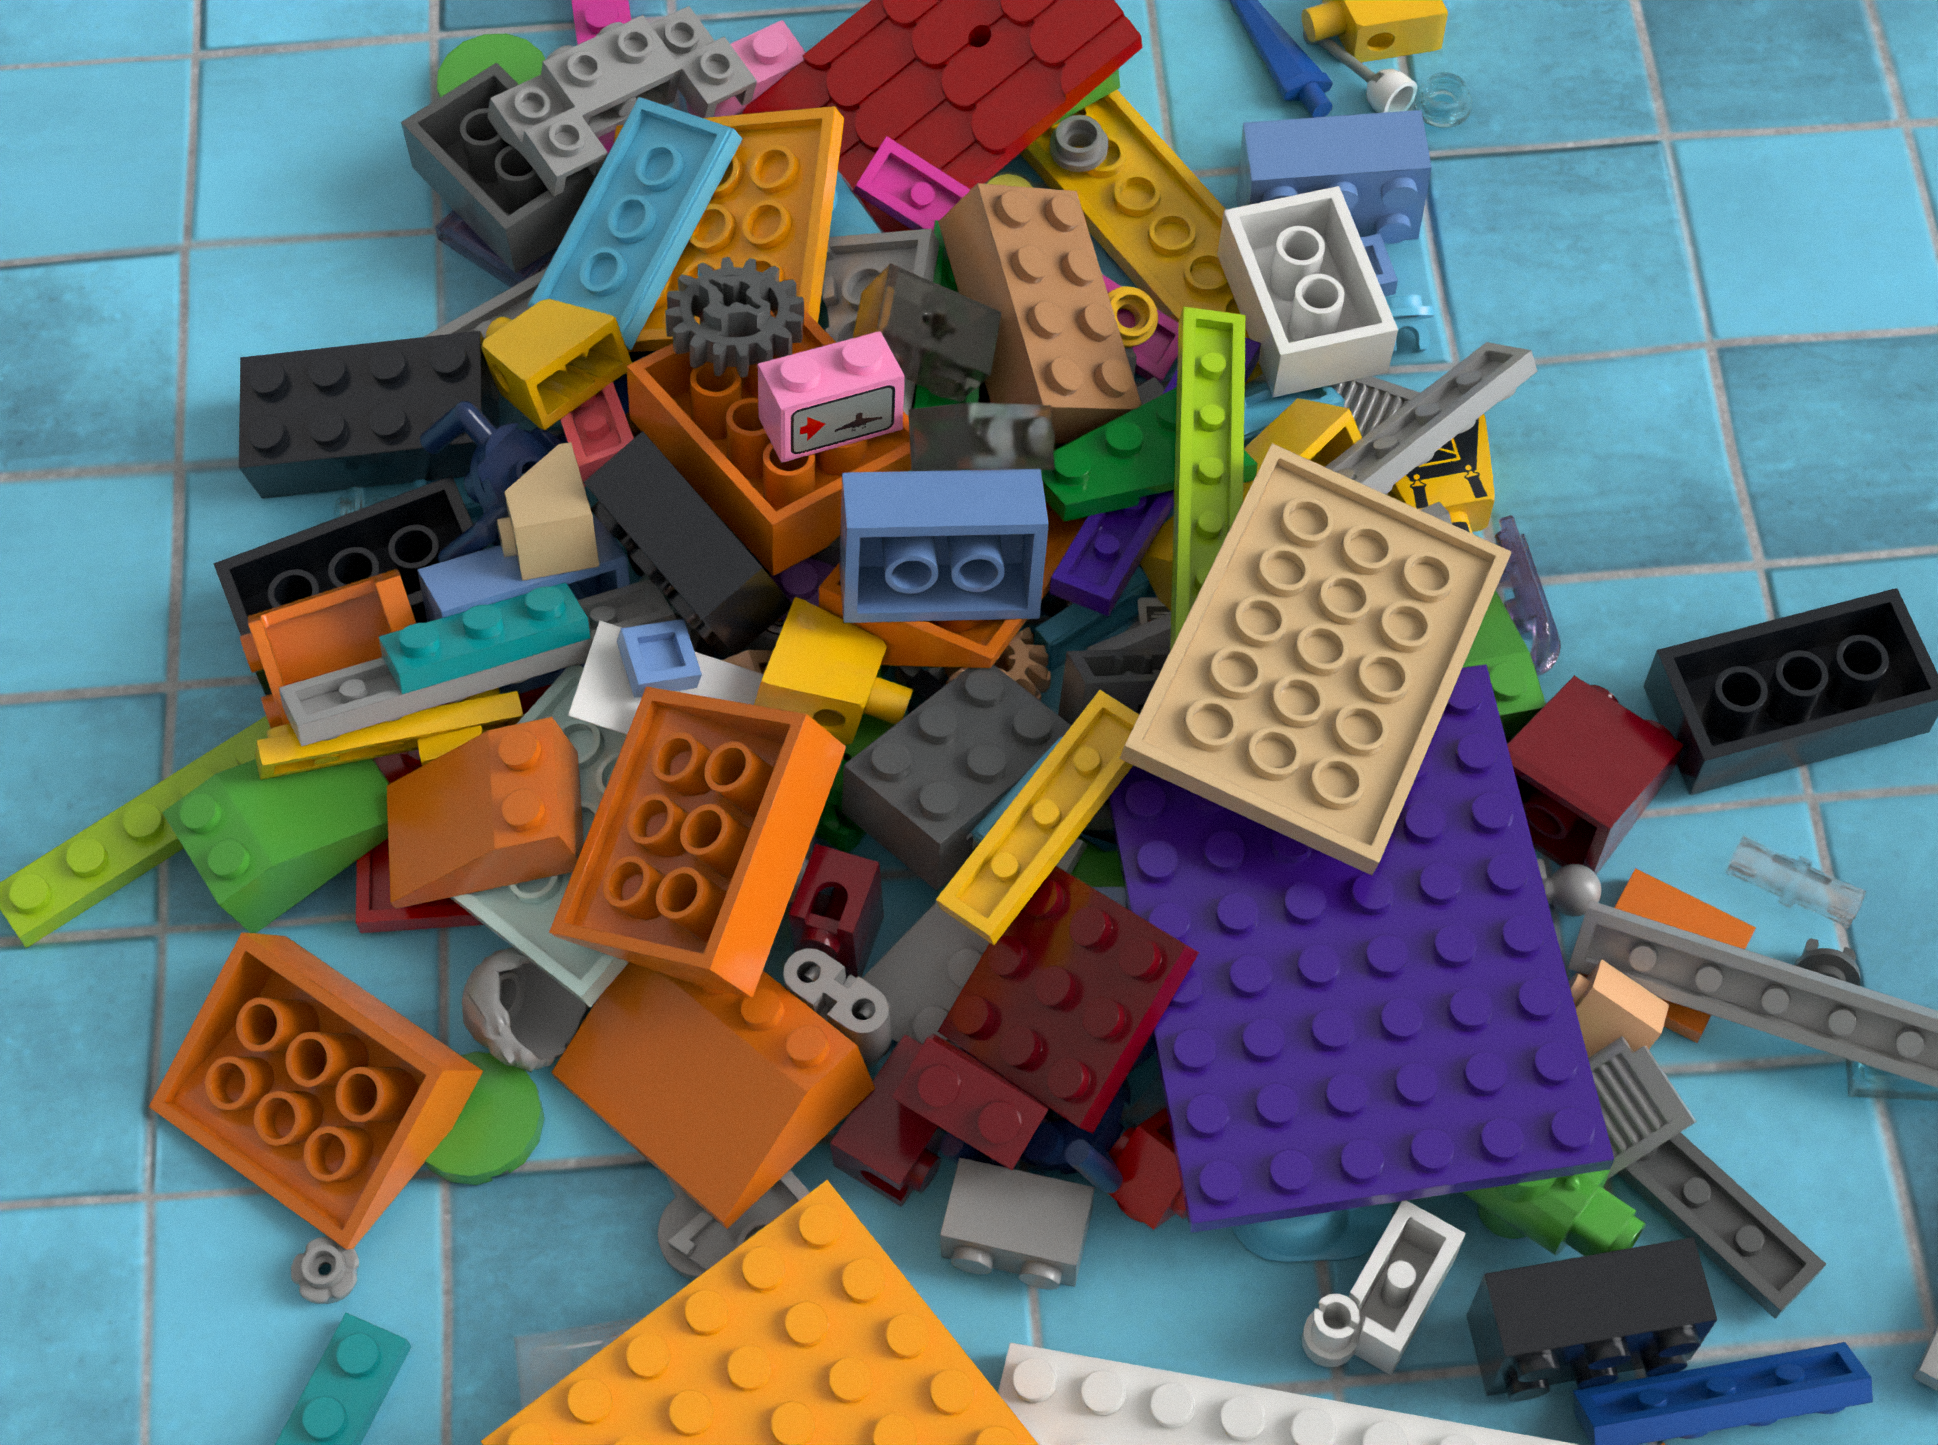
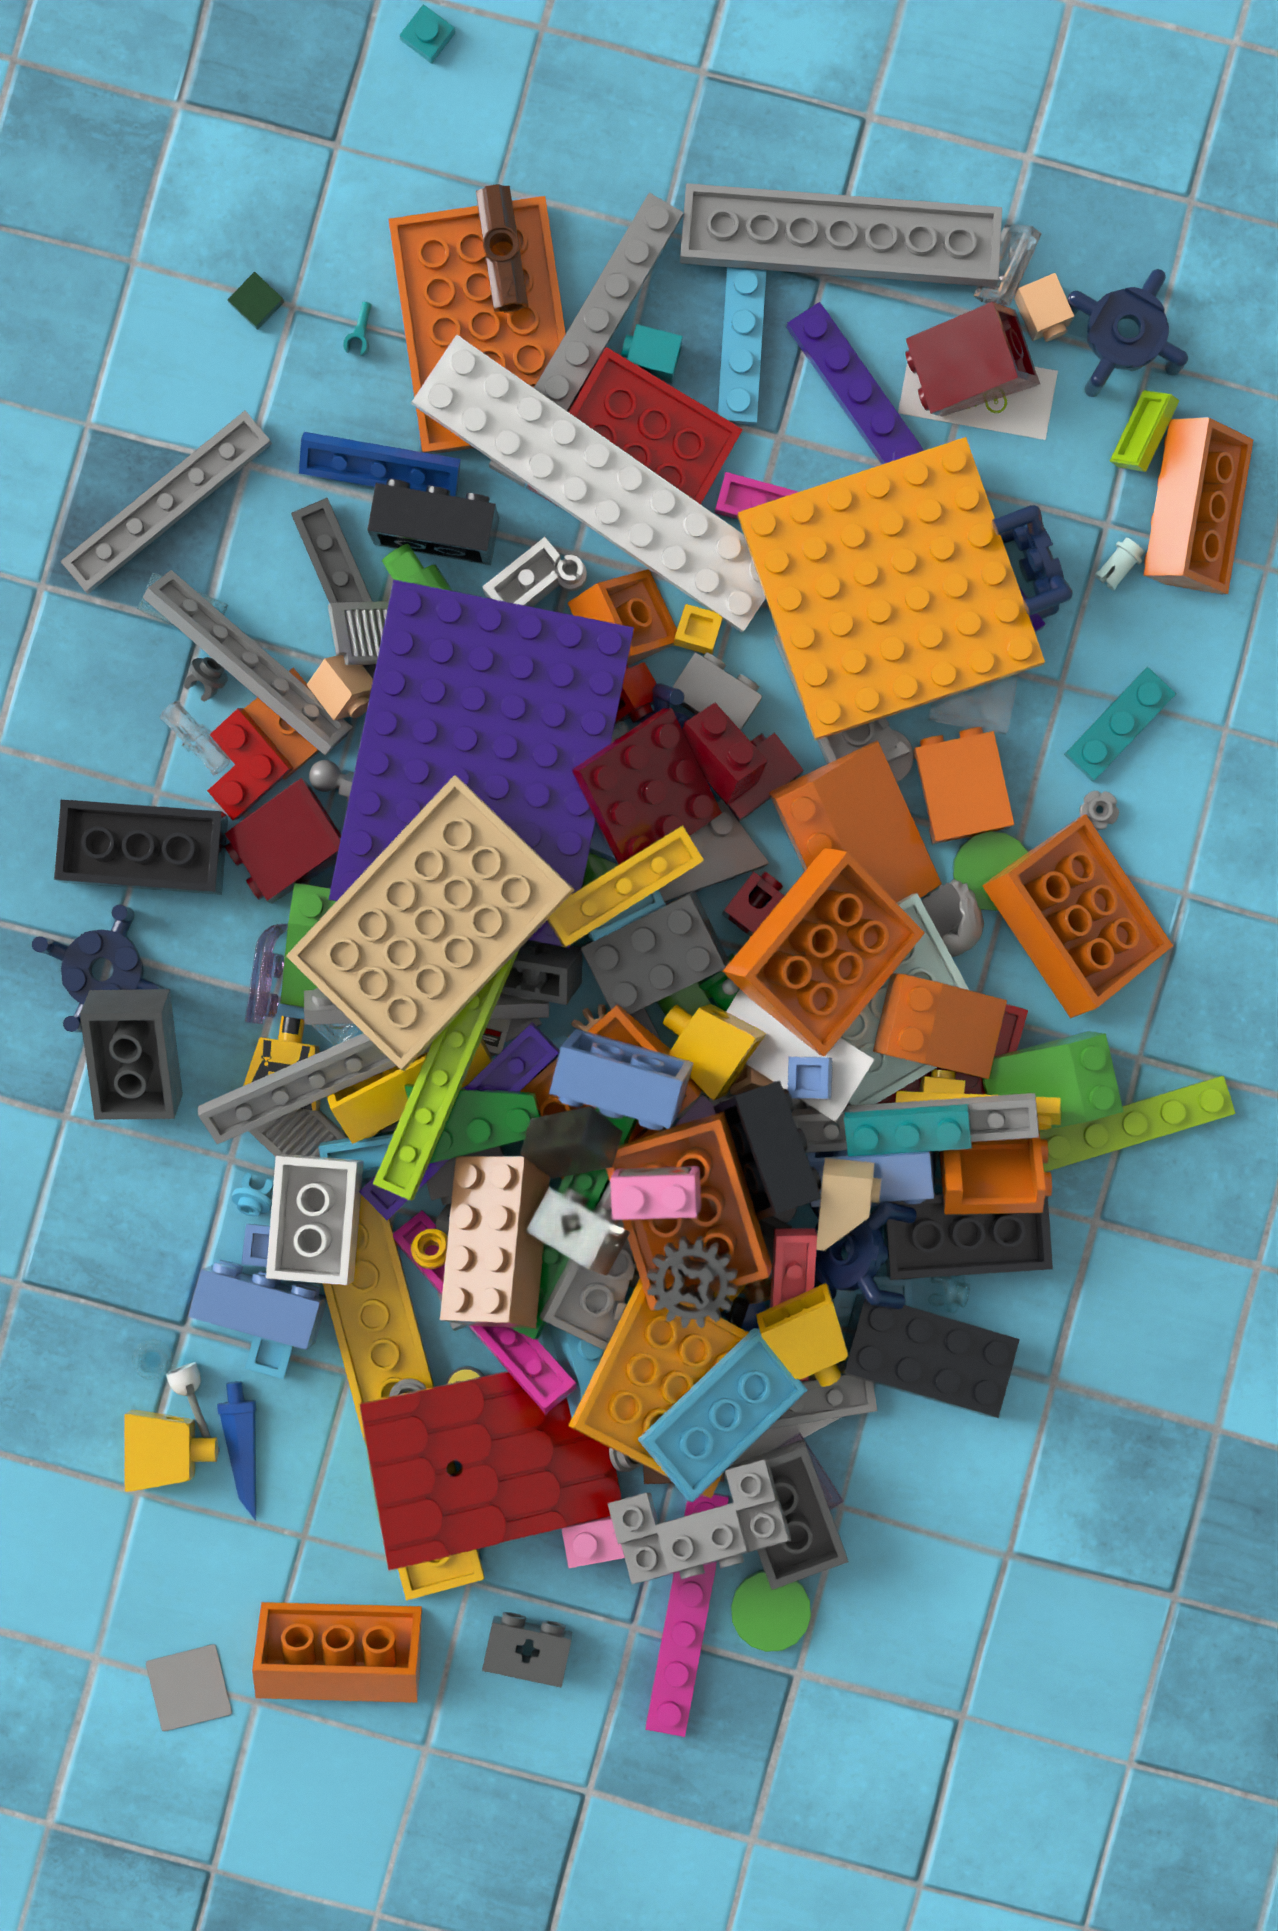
camera: 160 degrees left, 25 degrees up
(564, 1222) = (963, 785): none -> orange panel
(847, 1004) = (774, 844): light grey piece -> none
(1086, 1318) = (698, 629): none -> yellow plate
(1210, 1294) = (630, 602): none -> orange slope
(1665, 409) = (131, 1054): none -> dark grey brick
(1688, 876) = (256, 766): none -> red plate
(1767, 500) = (86, 950): none -> dark blue plate

